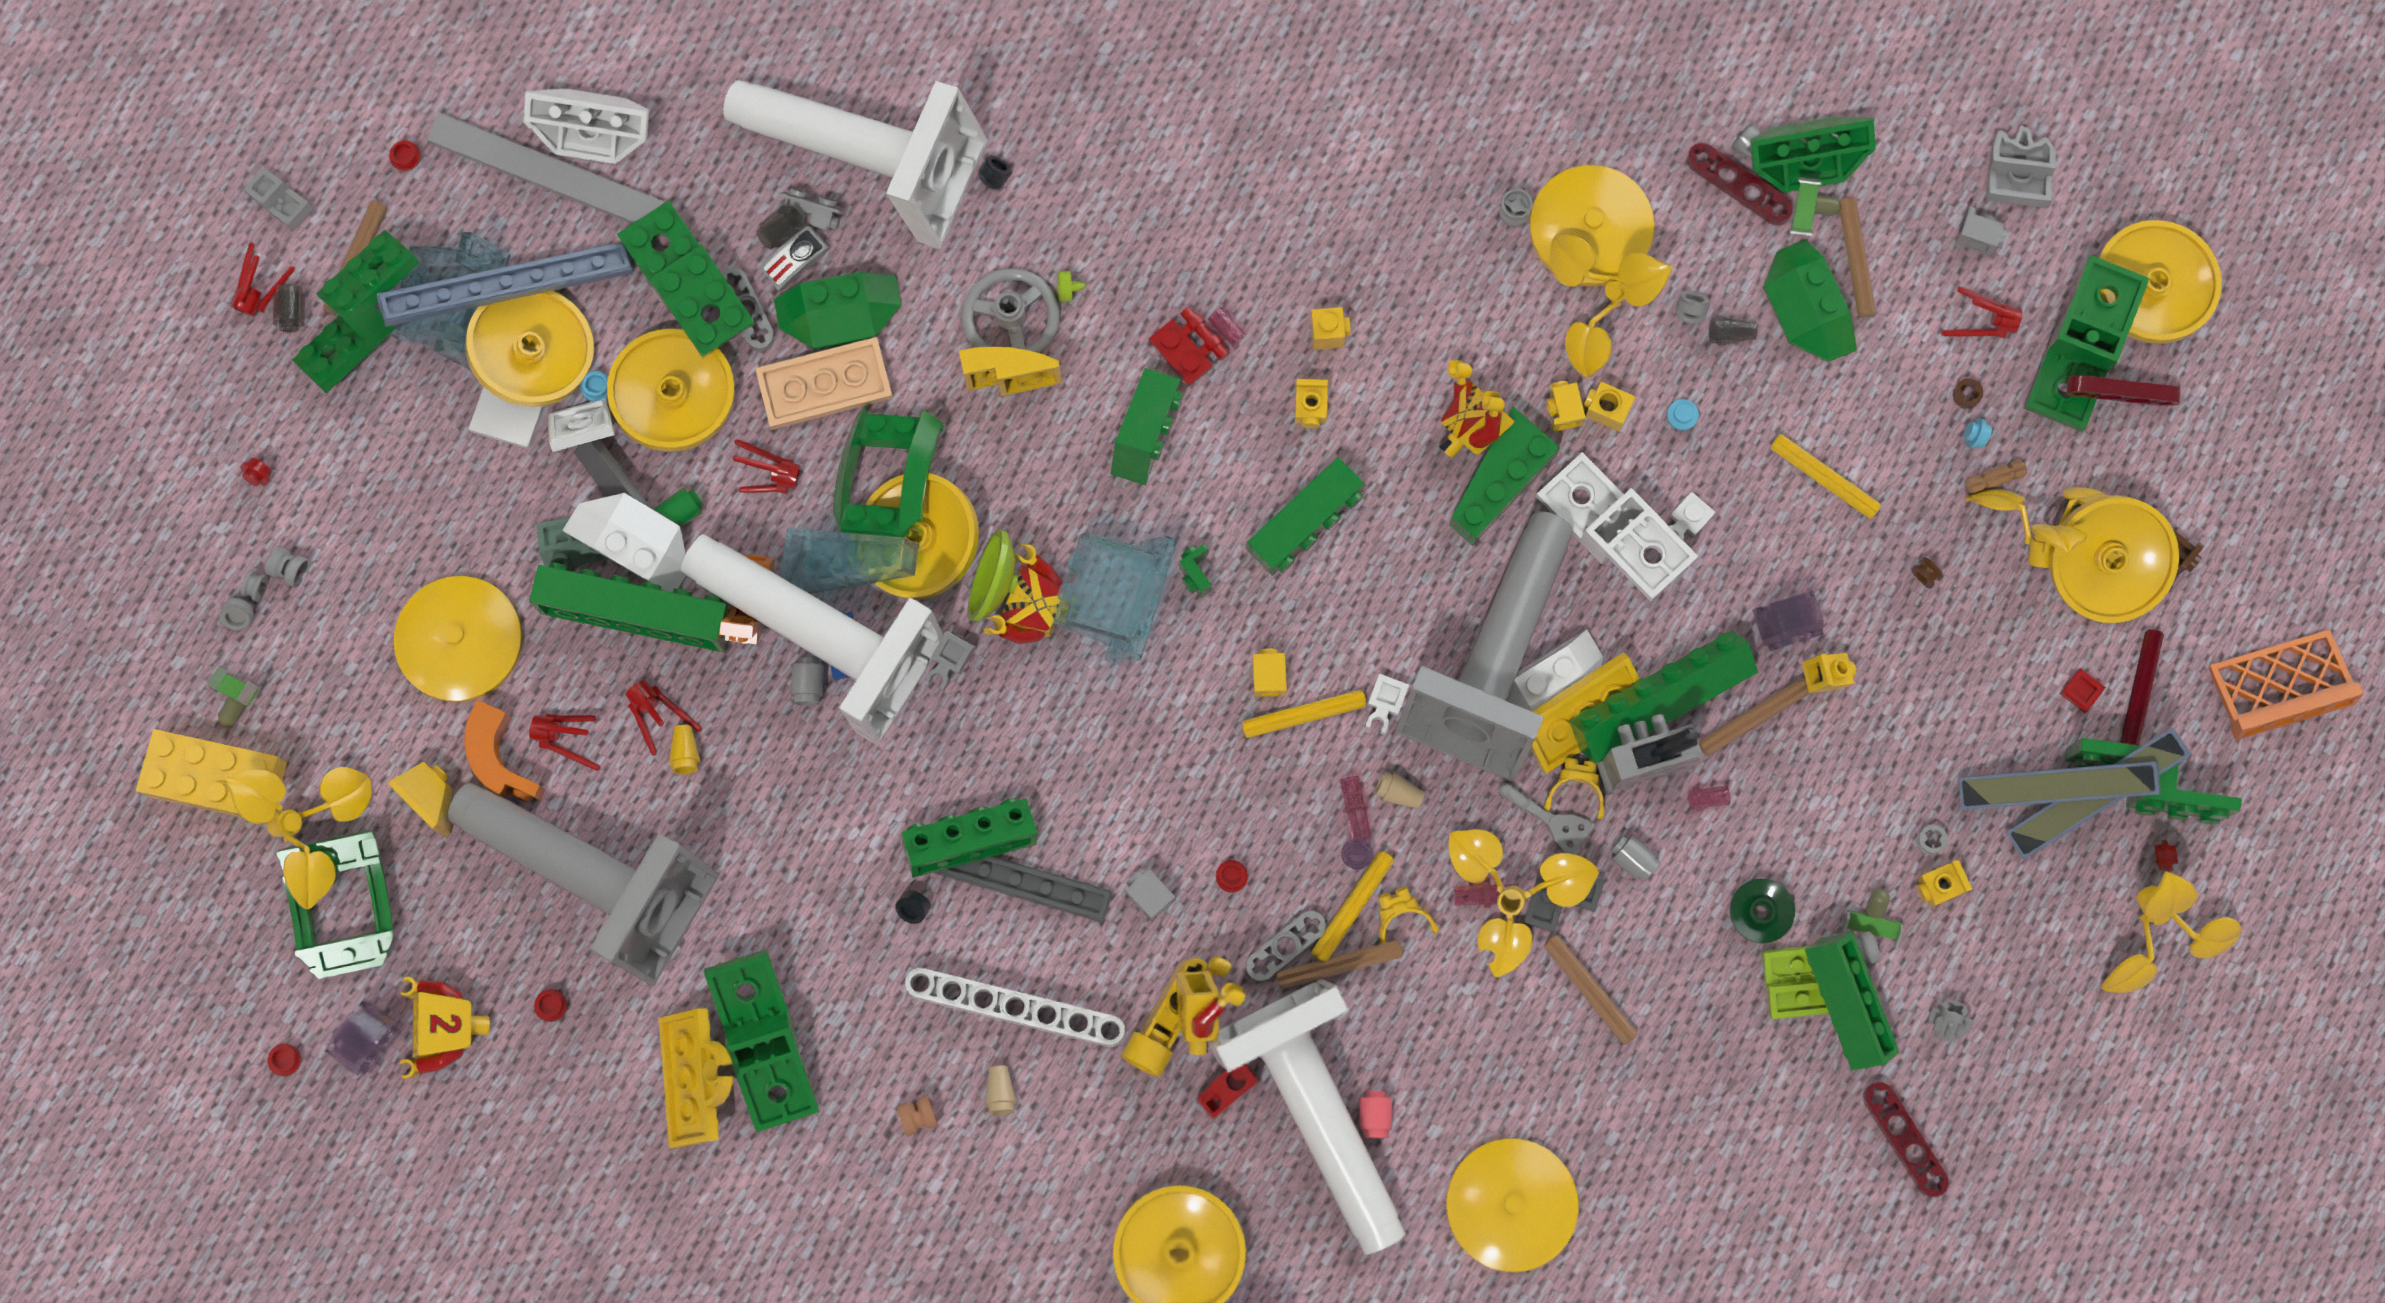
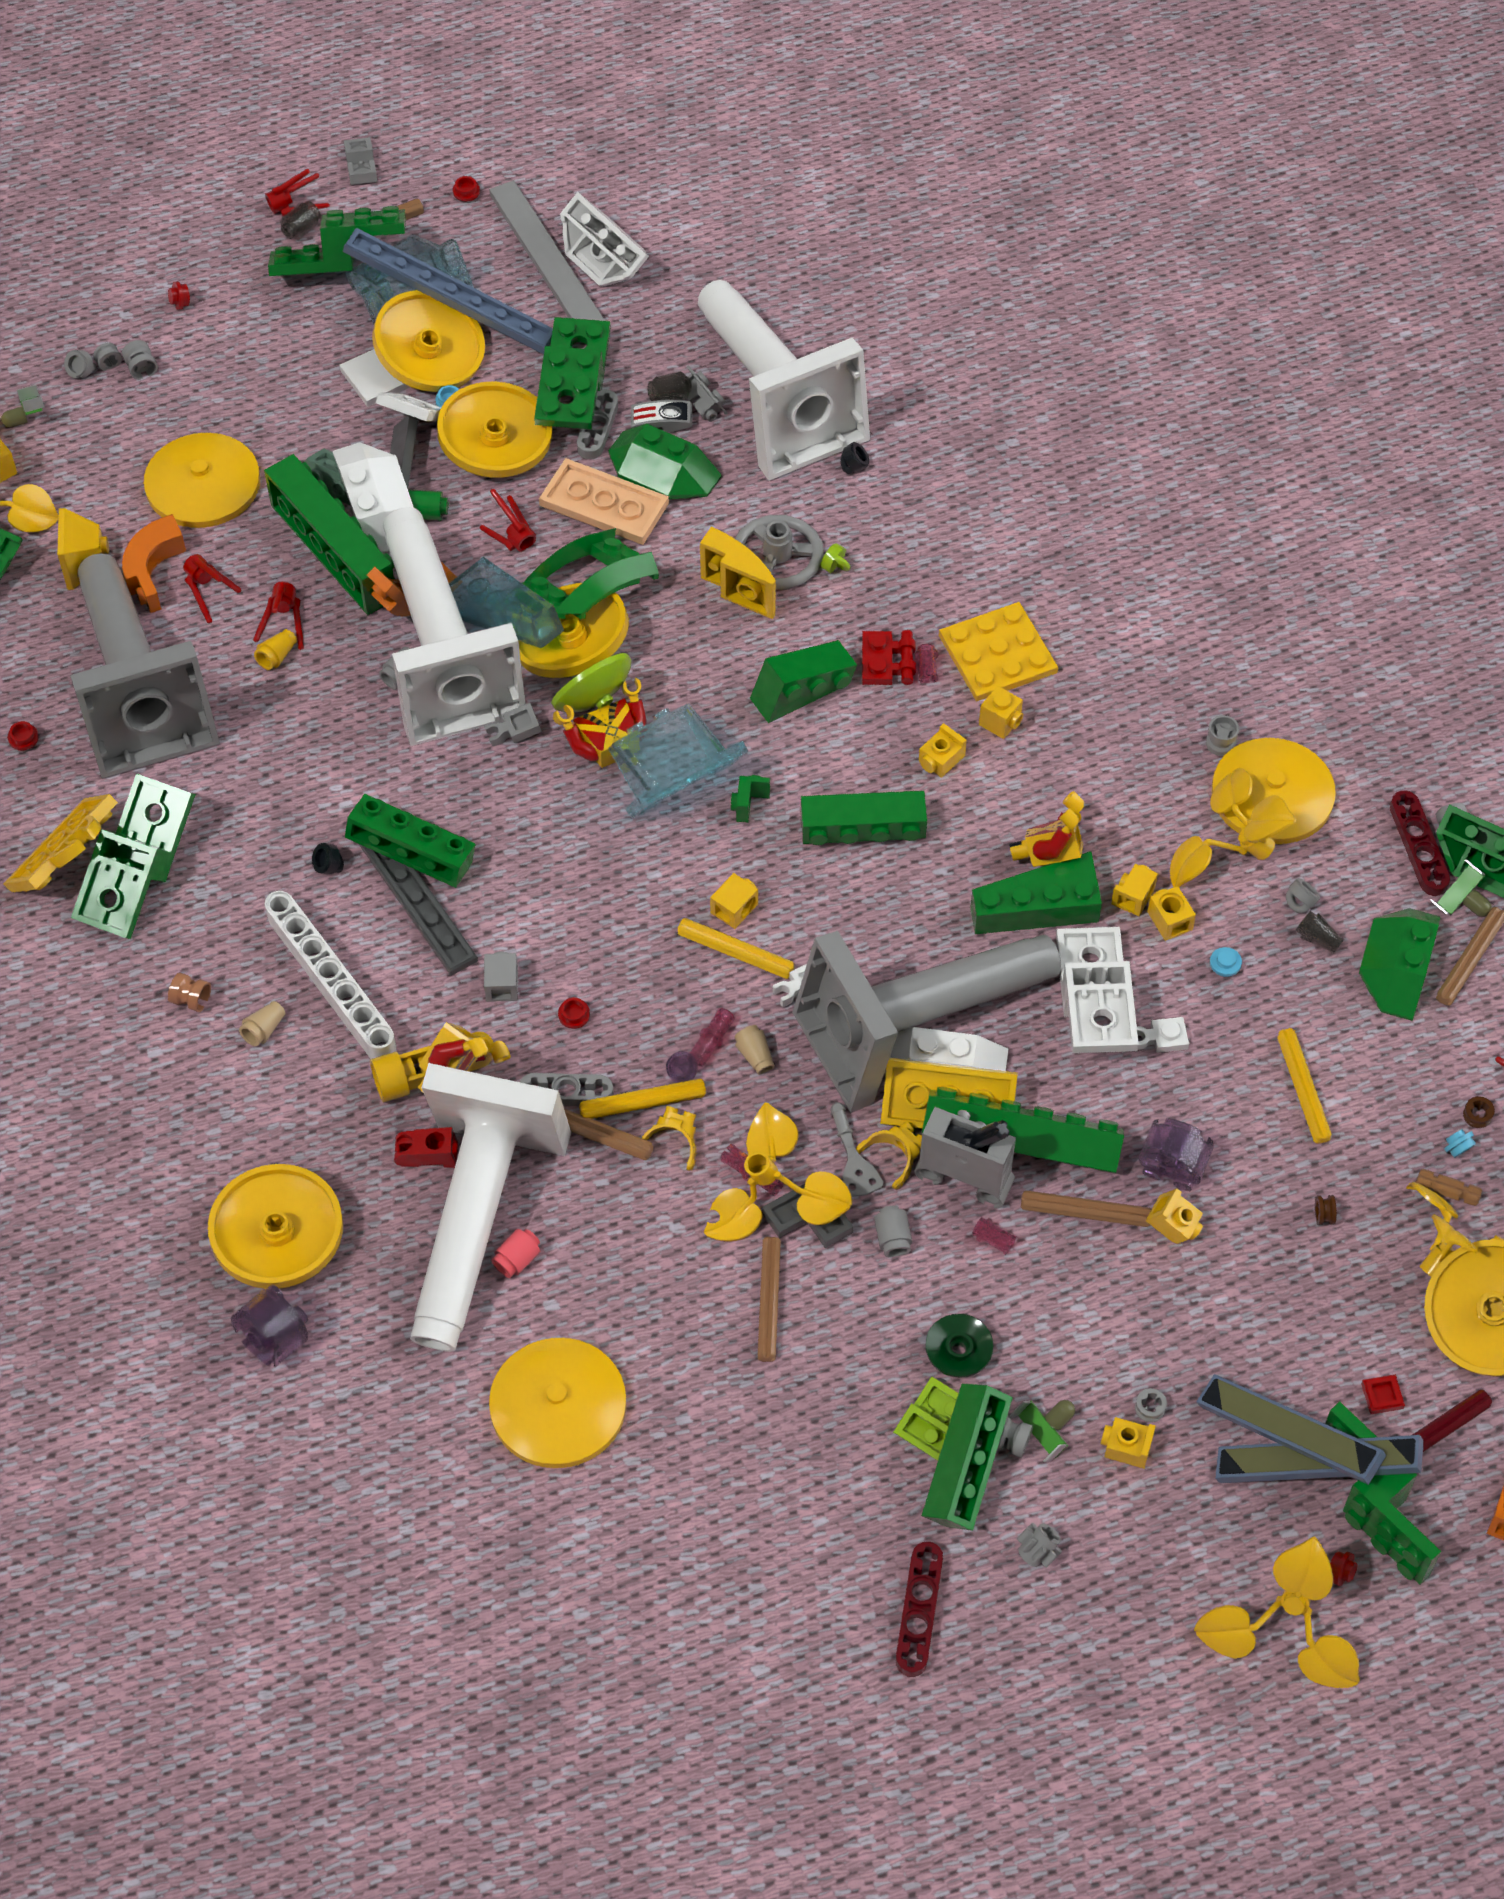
camera: 40 degrees right, 20 degrees down
(1271, 267) = (998, 651): none -> yellow plate

